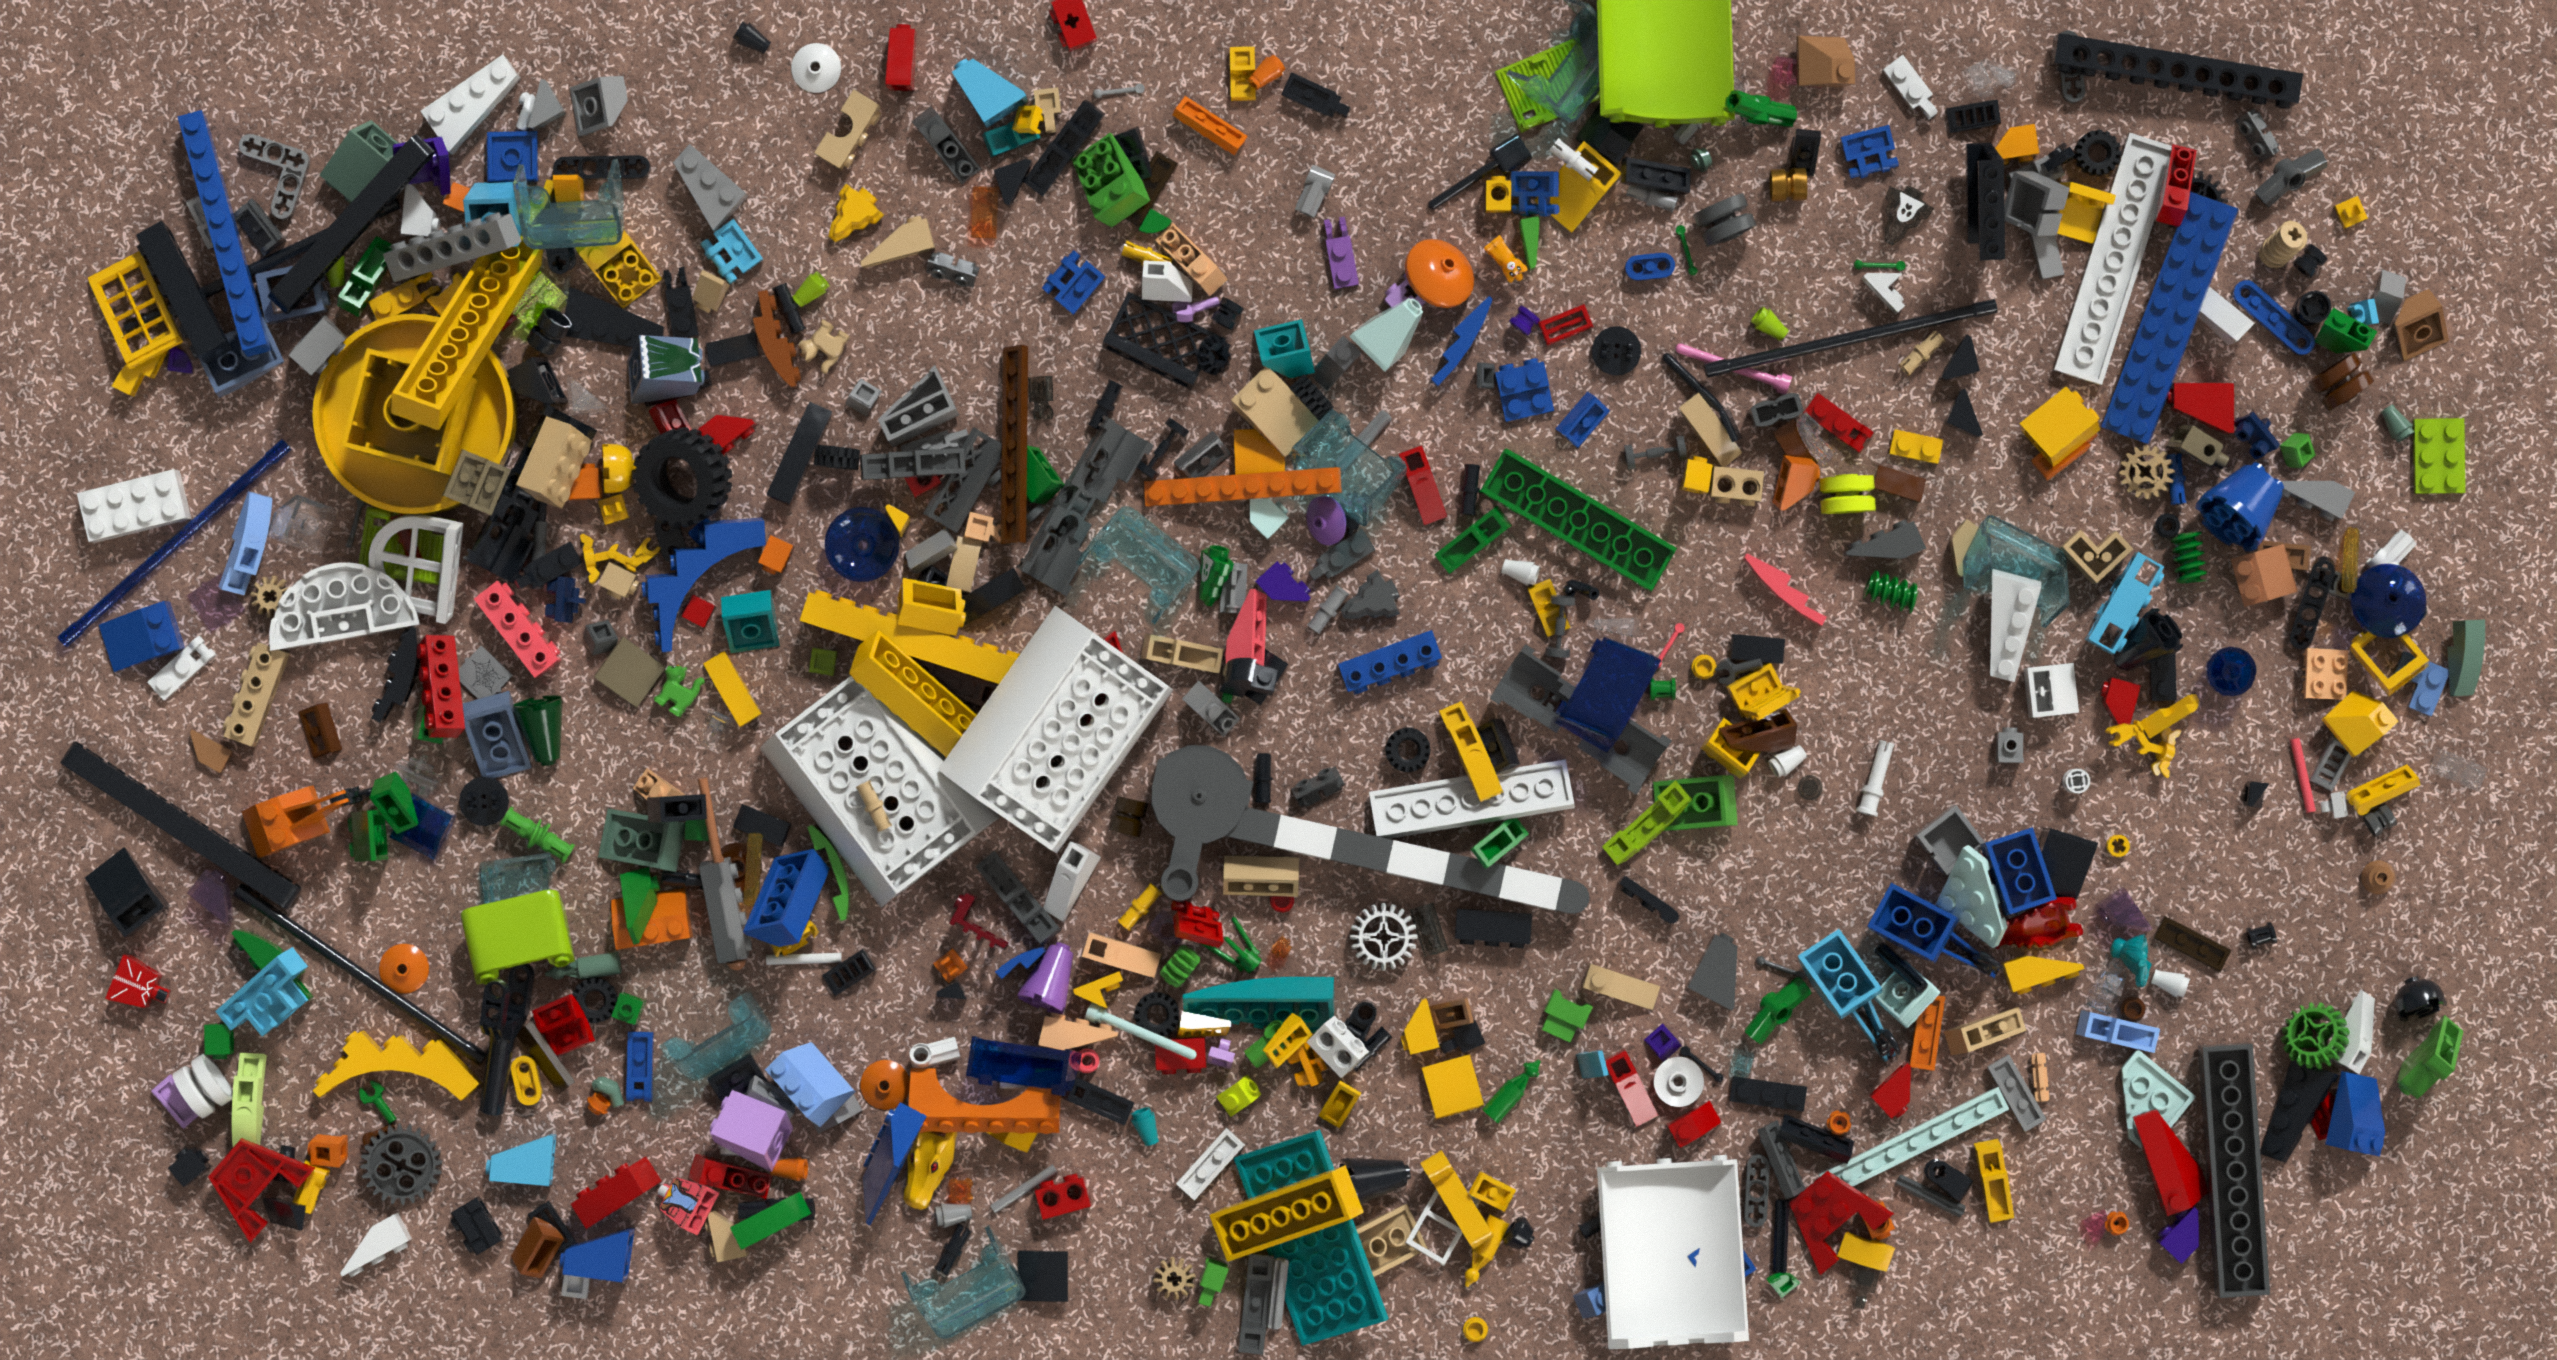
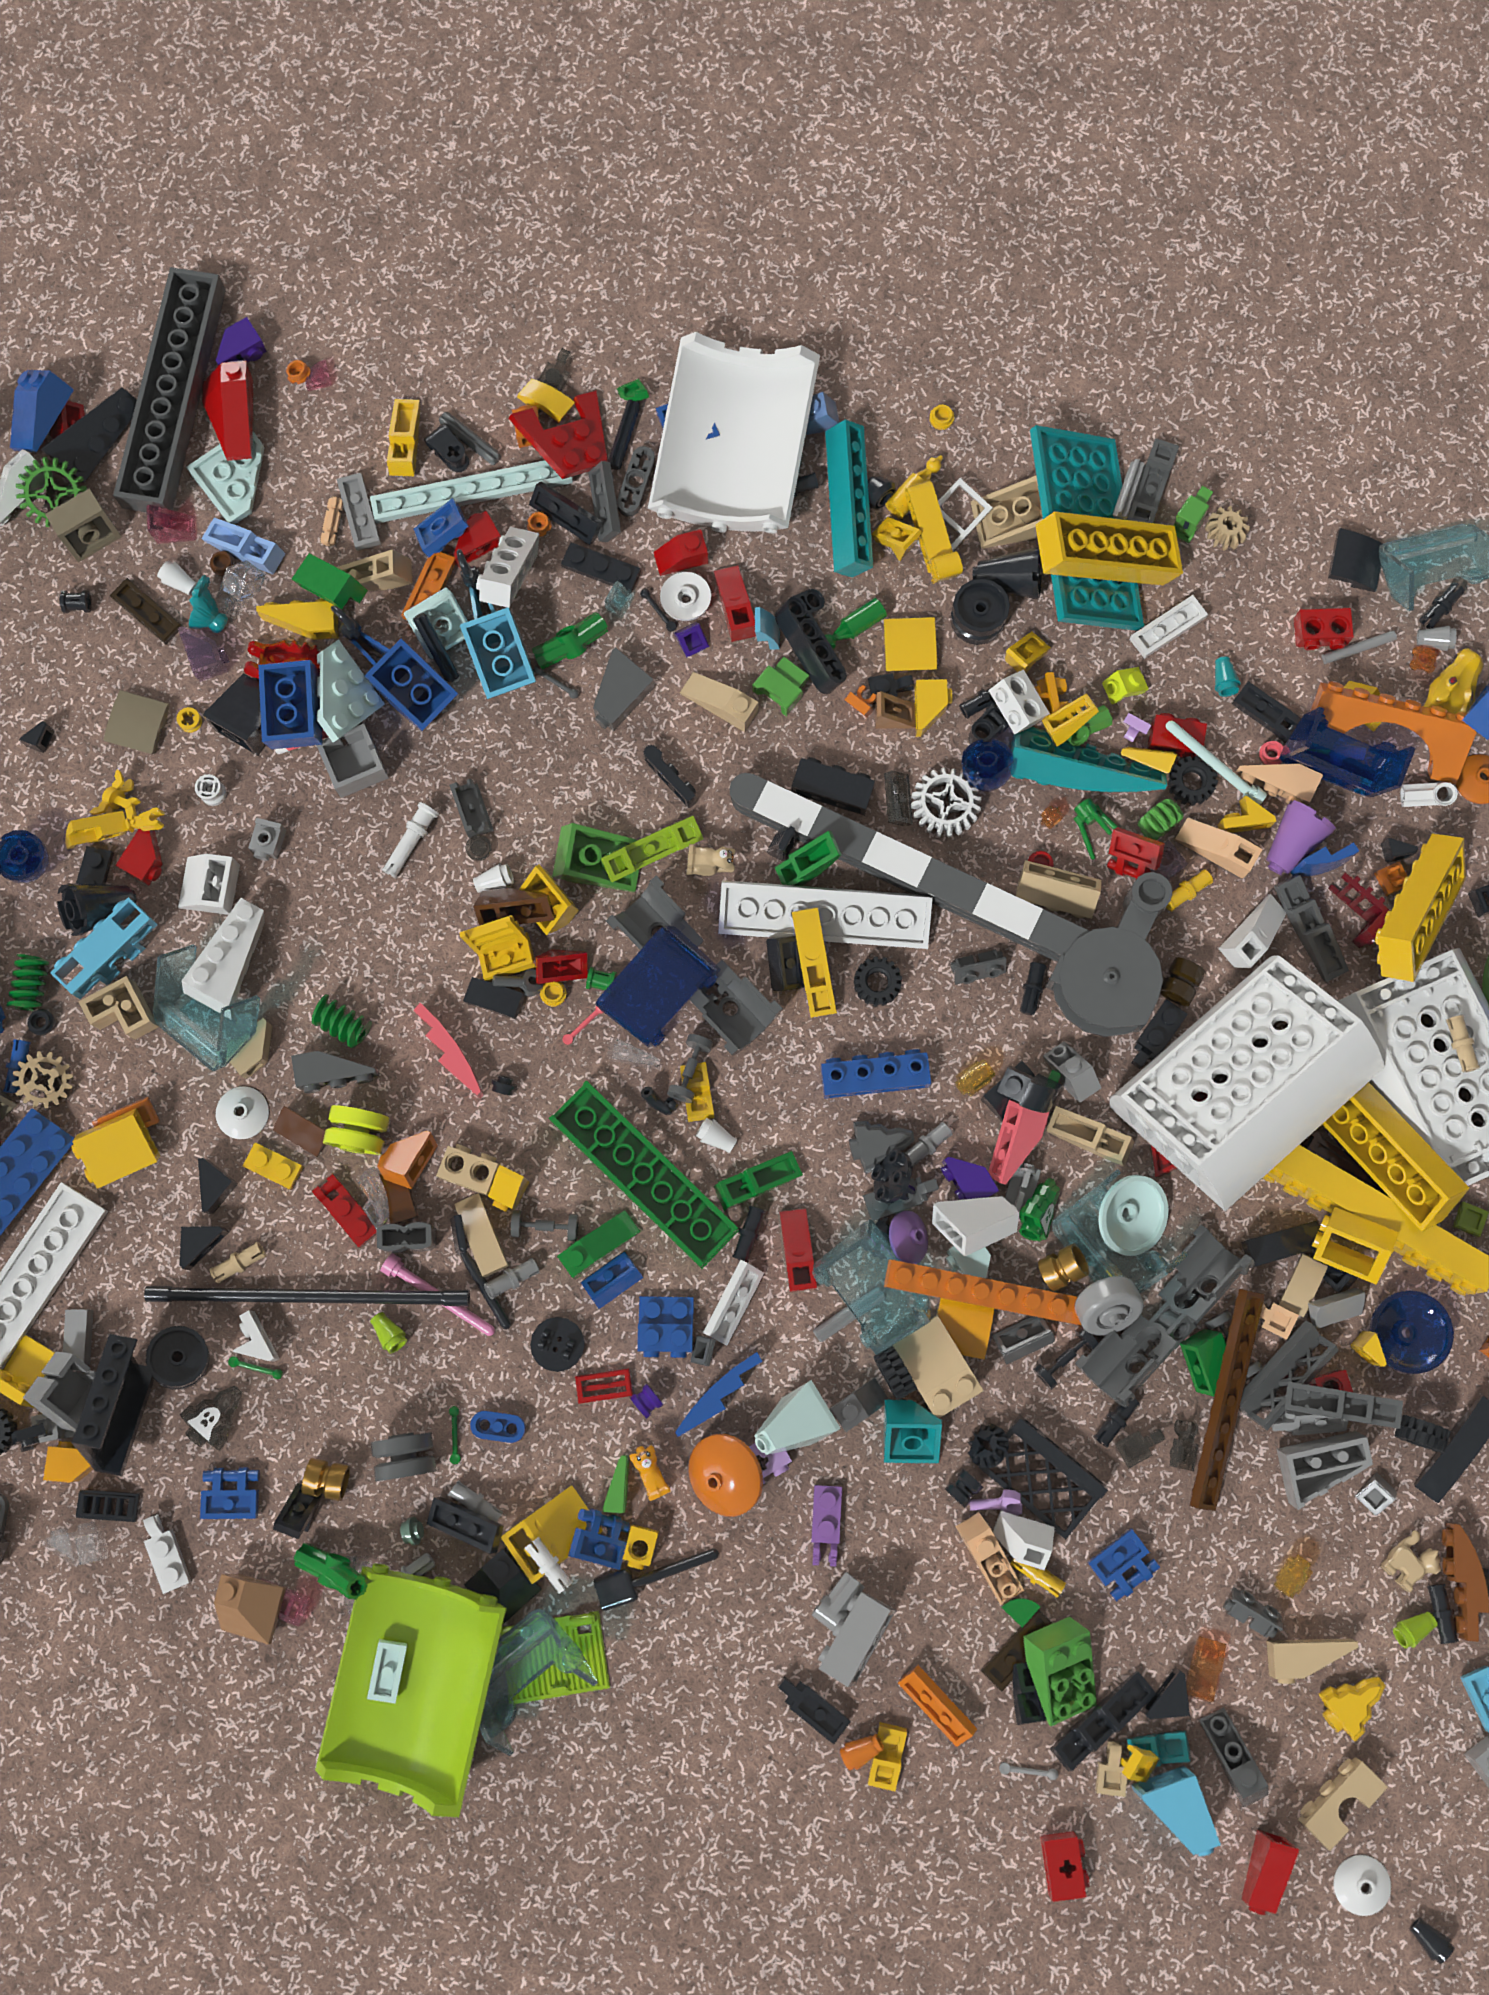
camera: 165 degrees left, 10 degrees down
(925, 308) = (1293, 1576): none -> clear yellow brick
(929, 930) = (1421, 907): none -> yellow brick
(1083, 385) = (1135, 1448): none -> clear smoke plate
(1119, 587) = (1142, 1218): none -> light aqua dish
(1136, 501) = (1109, 1305): none -> light grey wheel
(1139, 765) = (1158, 1032): none -> black hinge
(1182, 527) = (1061, 1268): none -> pearl gold wheel
(1270, 546) = (975, 1222): none -> white slope
(1293, 163) = (855, 1639): none -> light grey slope
(1299, 681) = (974, 1077): none -> clear yellow brick
(1353, 568) = (893, 1178): none -> black plate
(1354, 979) = (987, 764): none -> clear blue cylinder
(1391, 1117) = (979, 611): none -> black wheel
(1468, 425) = (733, 1302): none -> white plate
(1487, 1013) = (860, 703): none -> orange tile
(1528, 857) = (782, 843): none -> black slope
(1544, 1061) = (809, 641): none -> black beam
(1545, 1217) = (849, 499): none -> teal brick
(1590, 824) = (708, 861): none -> tan animal
(1602, 447) = (598, 1244): none -> green slope
(1672, 398) = (511, 1278): none -> light grey pin
(1689, 39) = (387, 1671): none -> light aqua plate
(1703, 693) = (561, 966): none -> red slope
(1726, 570) = (504, 1085): none -> black plate
(1826, 823) = (471, 808): none -> dark grey hinge
(1852, 1062) = (508, 567): none -> white brick
(1930, 1090) = (440, 528): none -> blue plate
(1948, 496) = (254, 1117): none -> white dish
(1950, 241) = (161, 1359): none -> black wheel
(2021, 1007) = (328, 582): none -> green piece
(2166, 831) = (136, 722): none -> dark tan slope
(2192, 1033) = (170, 525): none -> clear pink slope
(2275, 1010) = (83, 525): none -> dark tan slope

